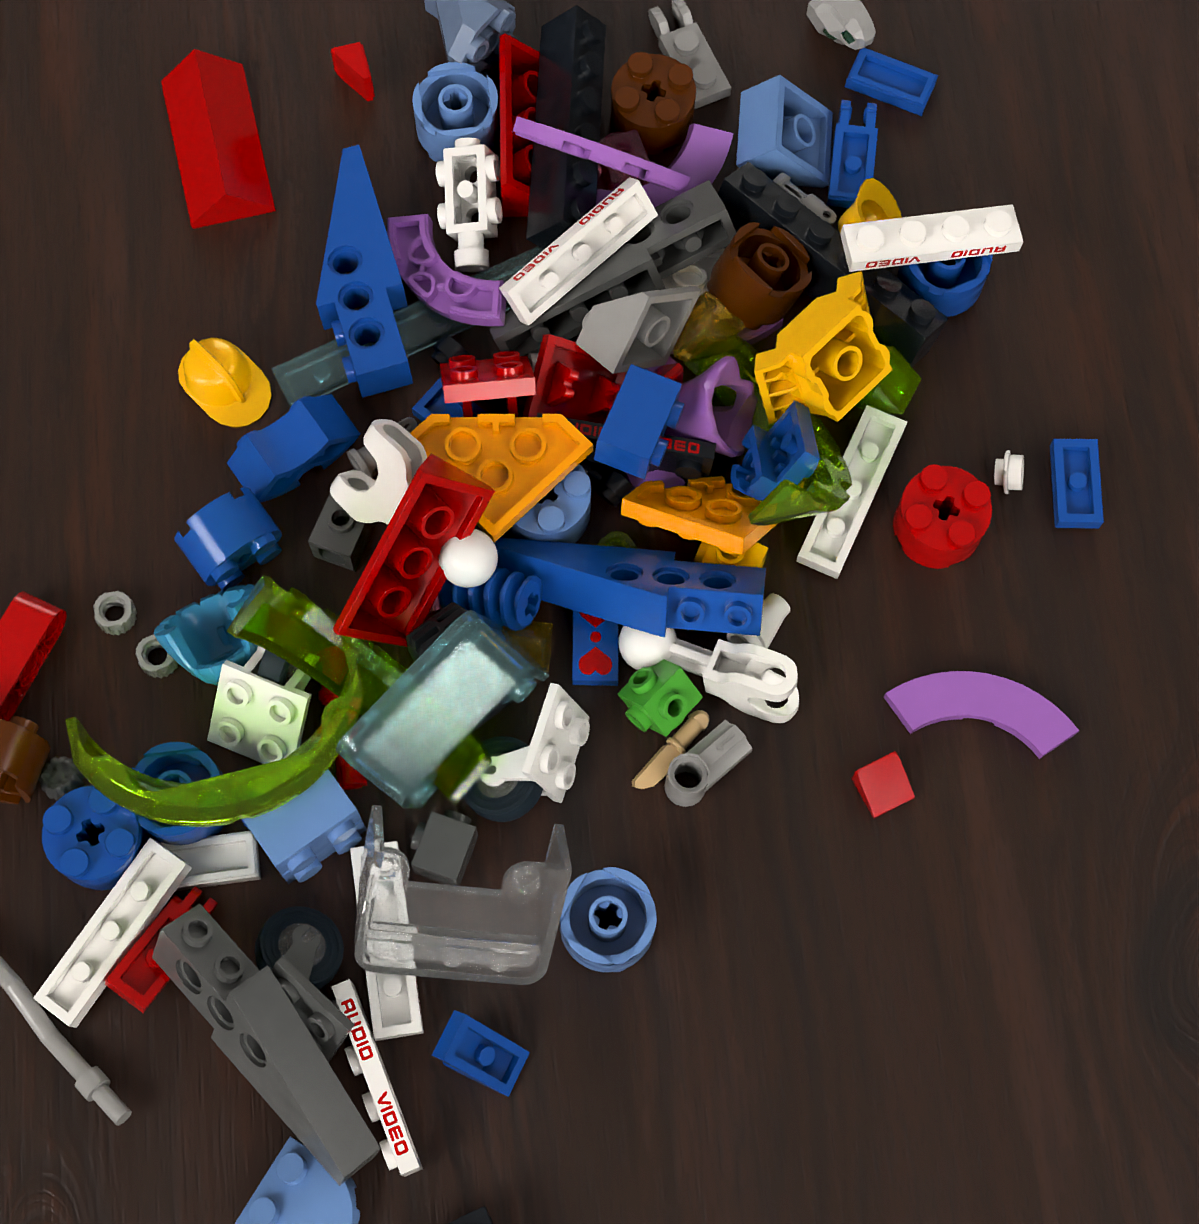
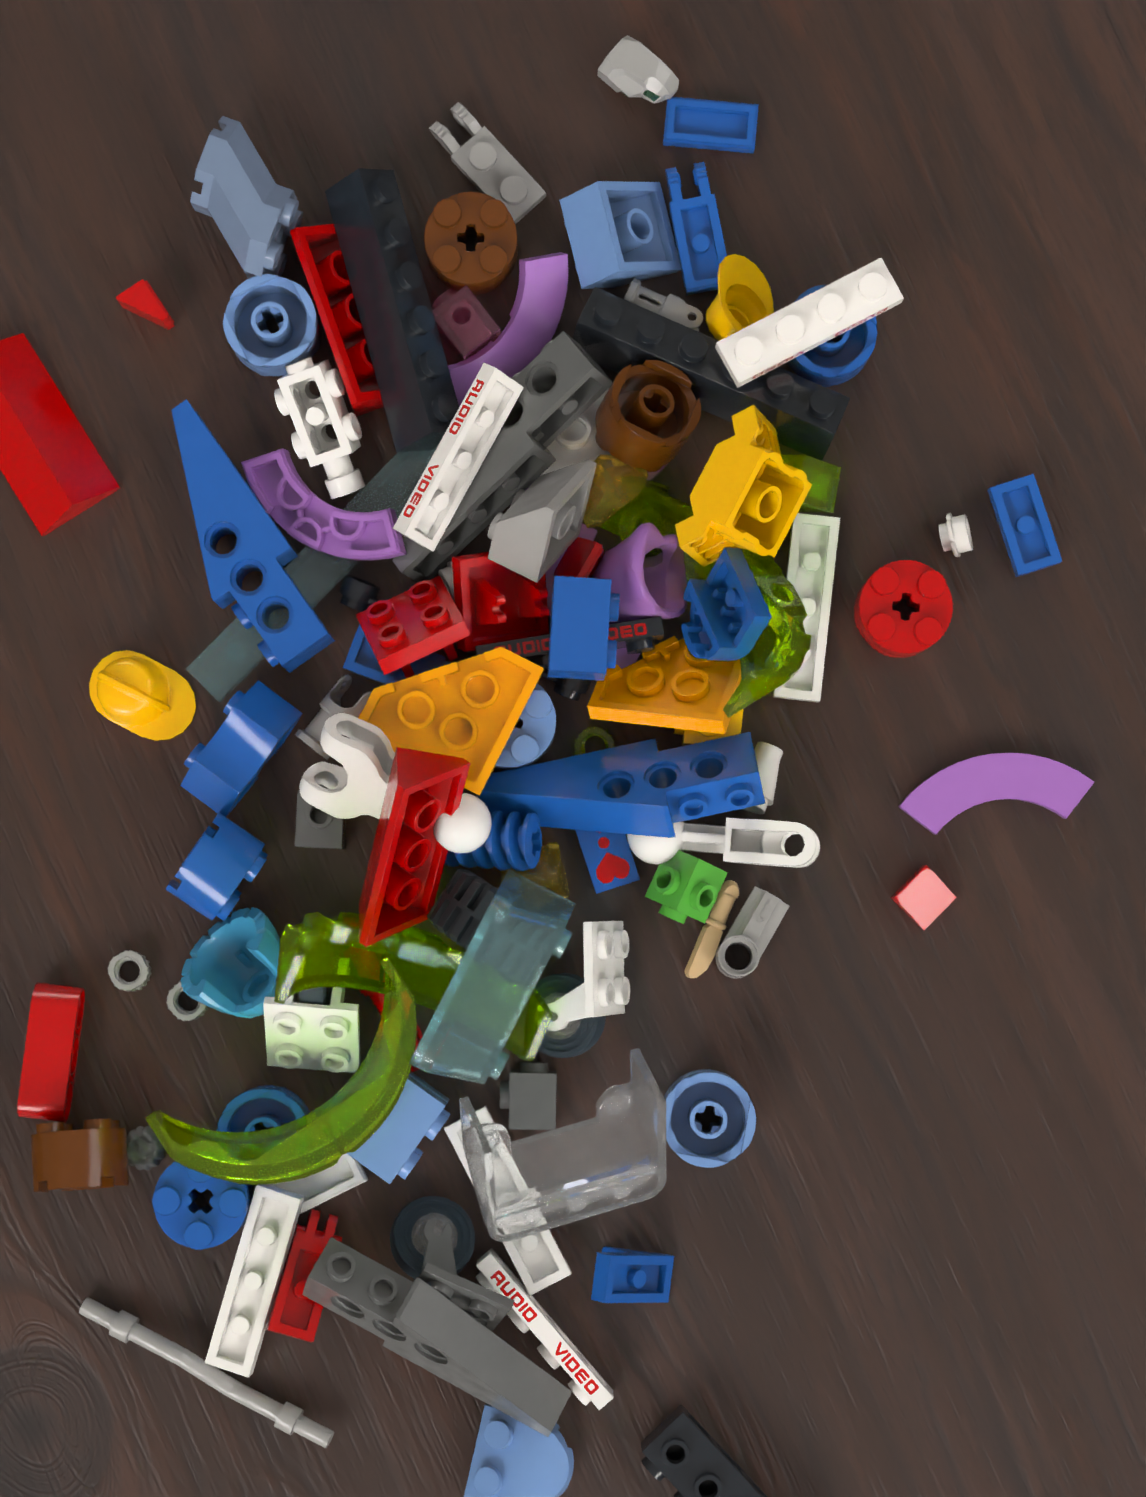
camera: 15 degrees left, 15 degrees up
(601, 154) = (446, 348): medium lavender tile -> none

